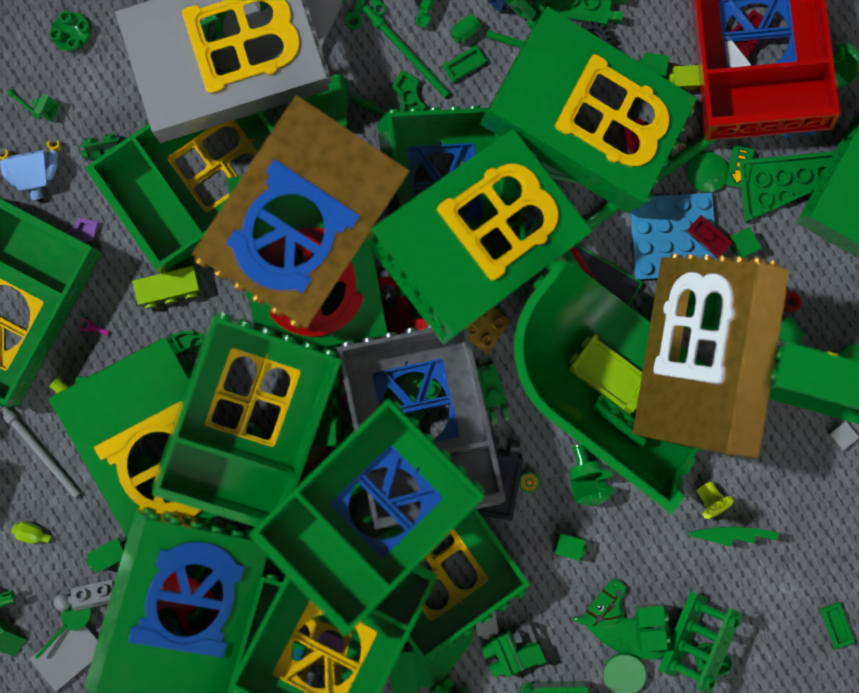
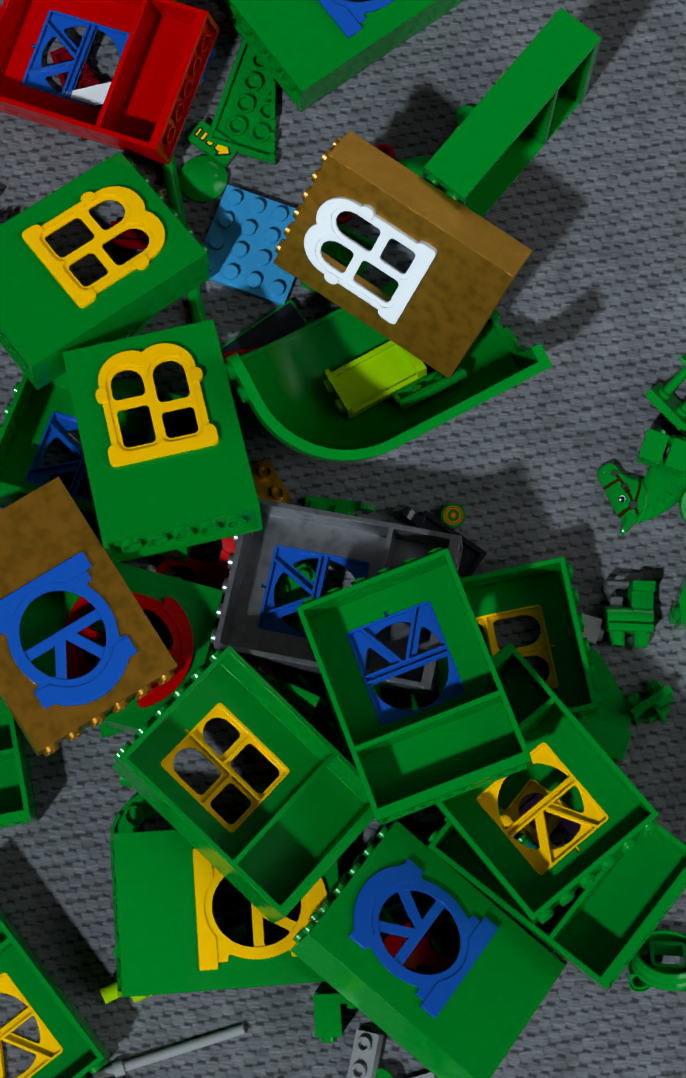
camera: 65 degrees left, 5 degrees down
(90, 327) = (61, 927): dark pink hand -> none
(167, 287) = (54, 820): lime brick -> none
(570, 547) = (542, 501): green brick -> none
(588, 479) = (477, 449): green piece -> none
(655, 62) = (58, 177): green brick -> none
(685, 77) = (89, 154): lime brick -> none
(708, 236) = (273, 207): dark red plate -> none
(713, 500) = (558, 328): neon yellow gear -> none
(725, 534) = (601, 332): green slope -> none
(744, 243) = (297, 174): green panel -> none
(843, 435) = (549, 165): light grey tile -> none

